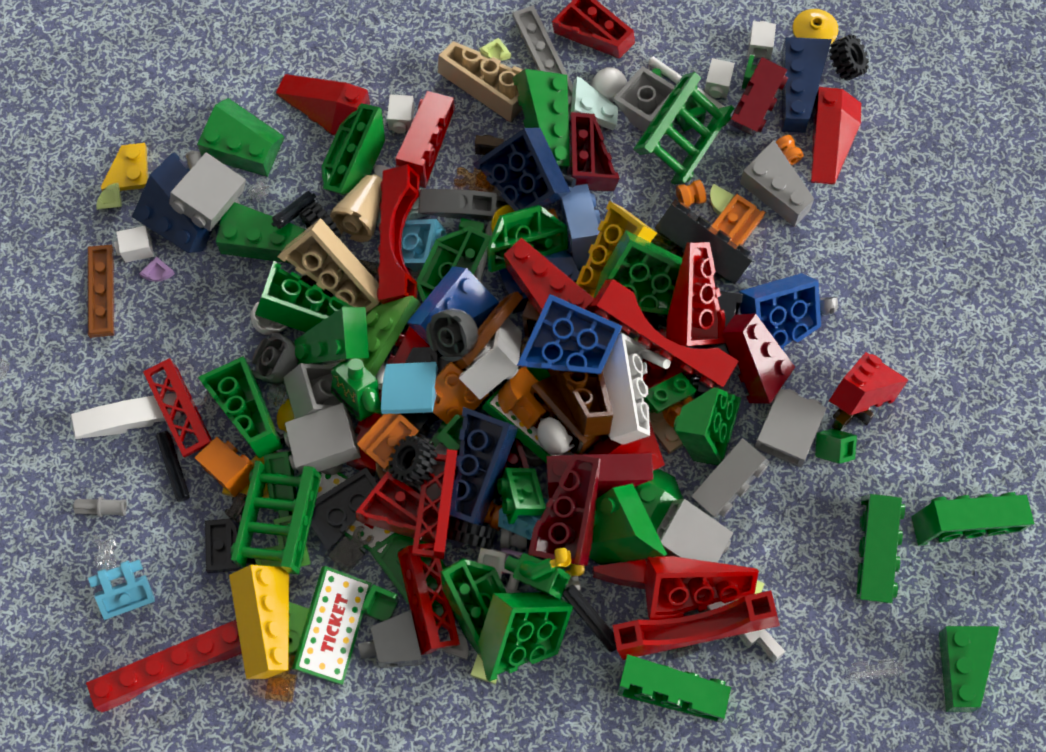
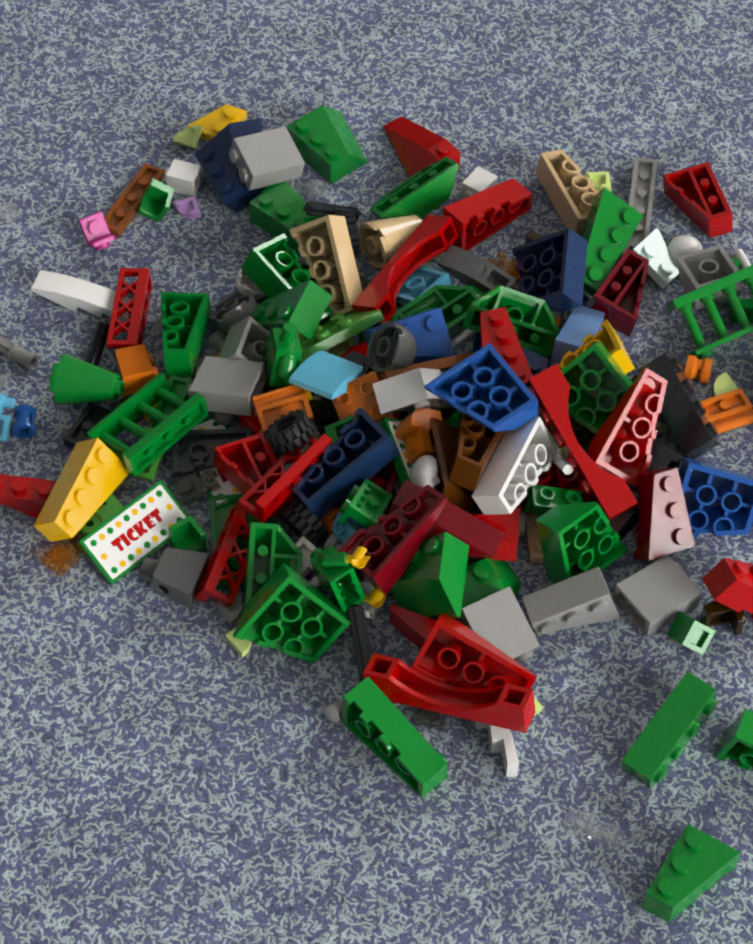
camera: 30 degrees right, 15 degrees down
(93, 343) = (96, 231): none -> bracket
(126, 282) = (156, 200): none -> green panel
(158, 572) = (24, 421): none -> blue bush
(190, 507) = (83, 382): none -> green cone
(604, 689) = (334, 711): none -> light grey hinge

